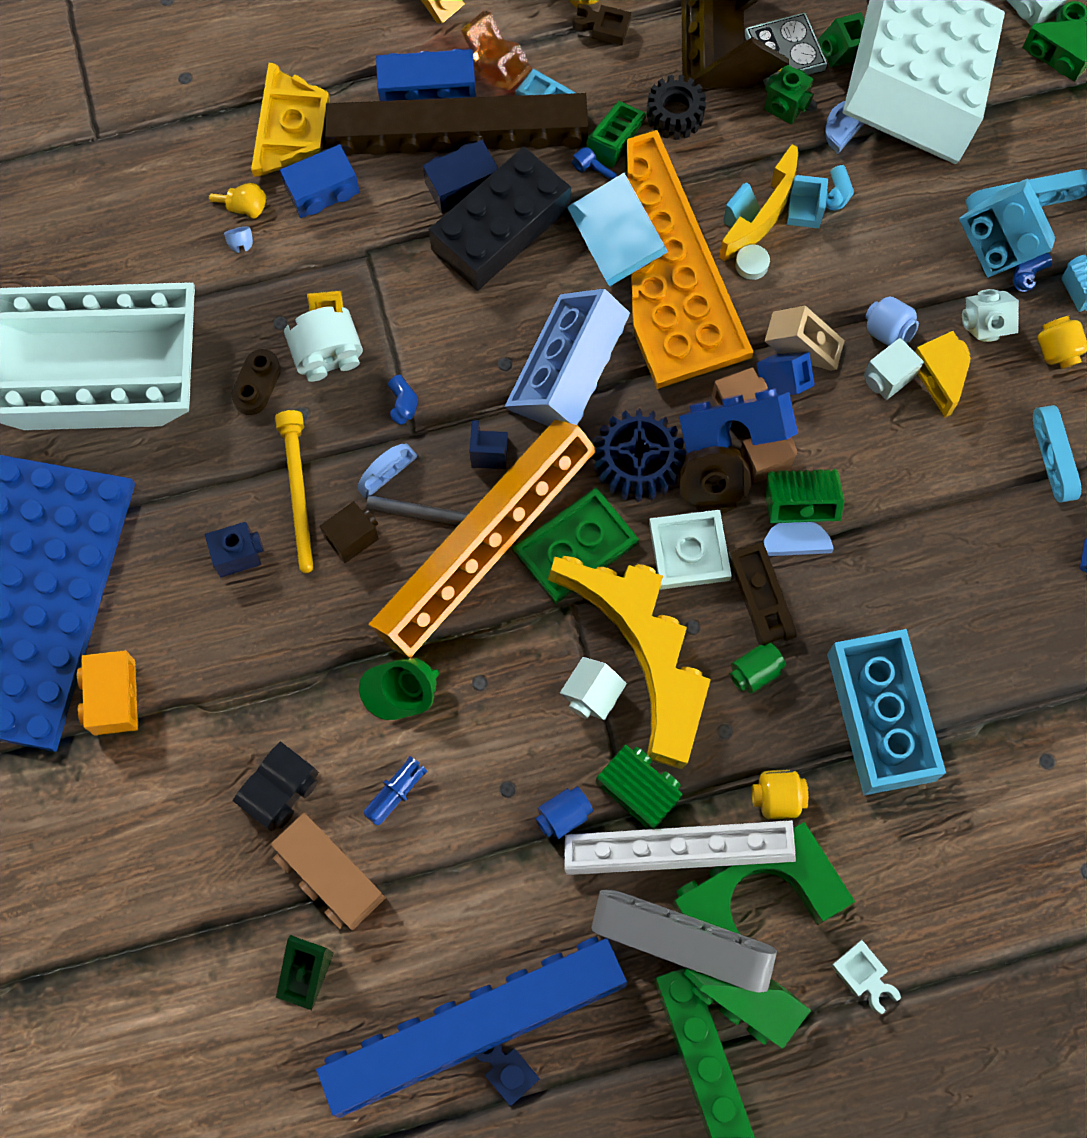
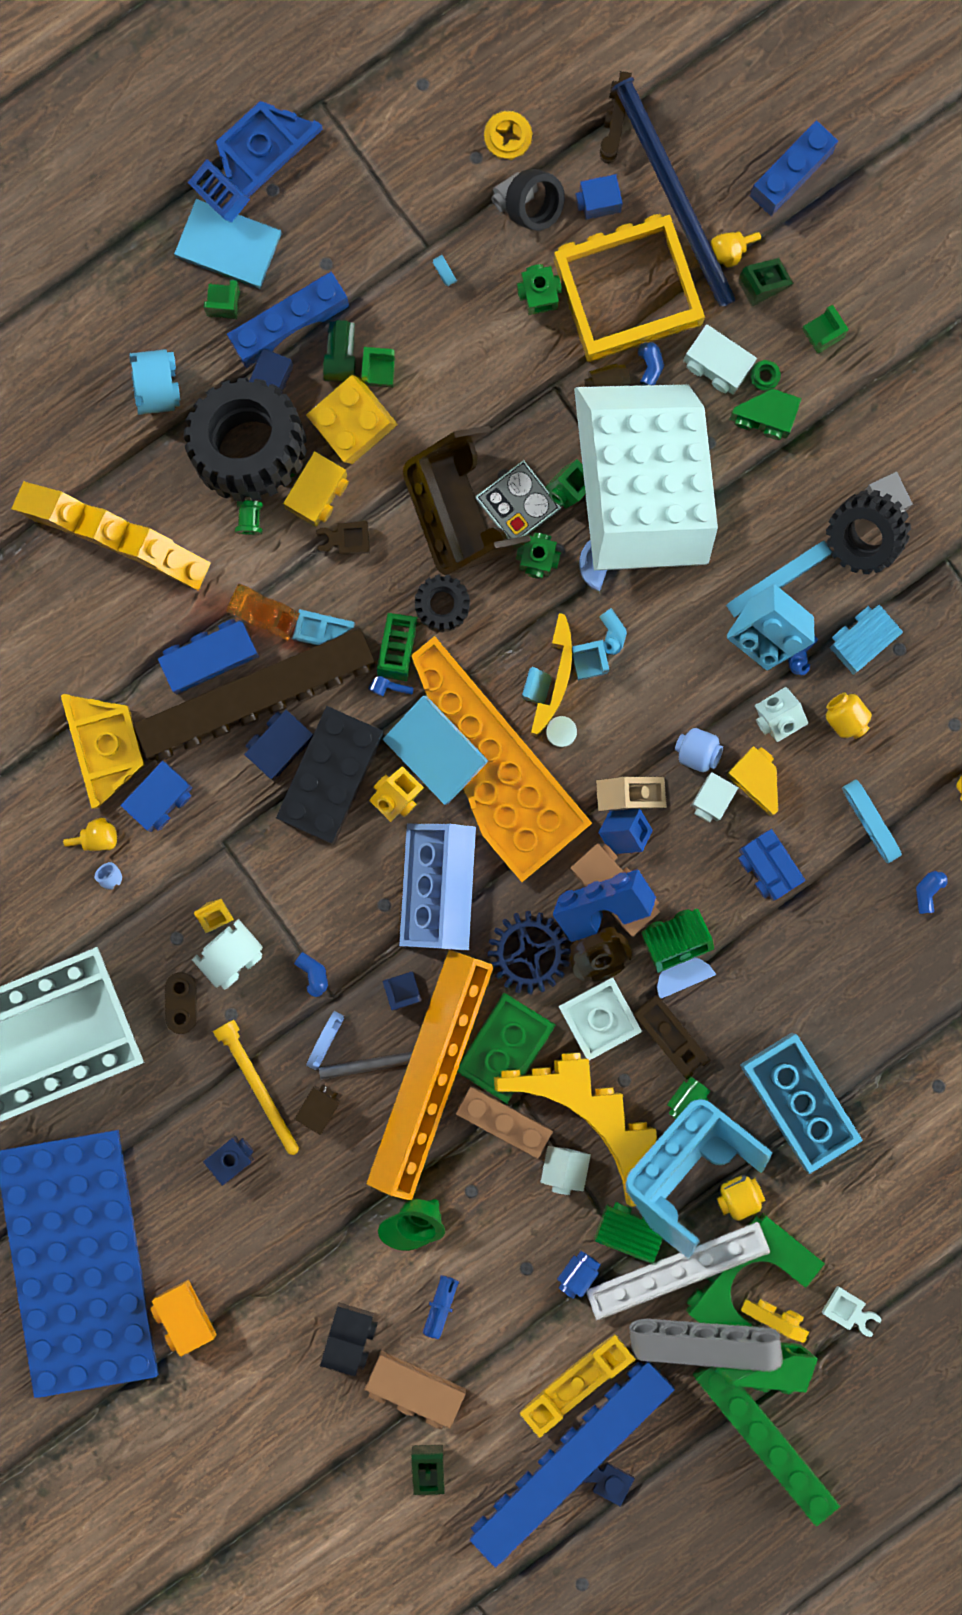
camera: 25 degrees left, 15 degrees up
(514, 938) = (576, 1384): none -> yellow slope
(554, 622) = (504, 1122): none -> medium nougat arch
(560, 254) = (390, 796): none -> yellow brick
(743, 702) = (695, 1133): none -> medium azure windscreen
(790, 955) = (786, 1324): none -> yellow plate
(931, 459) = (770, 865): none -> blue brick

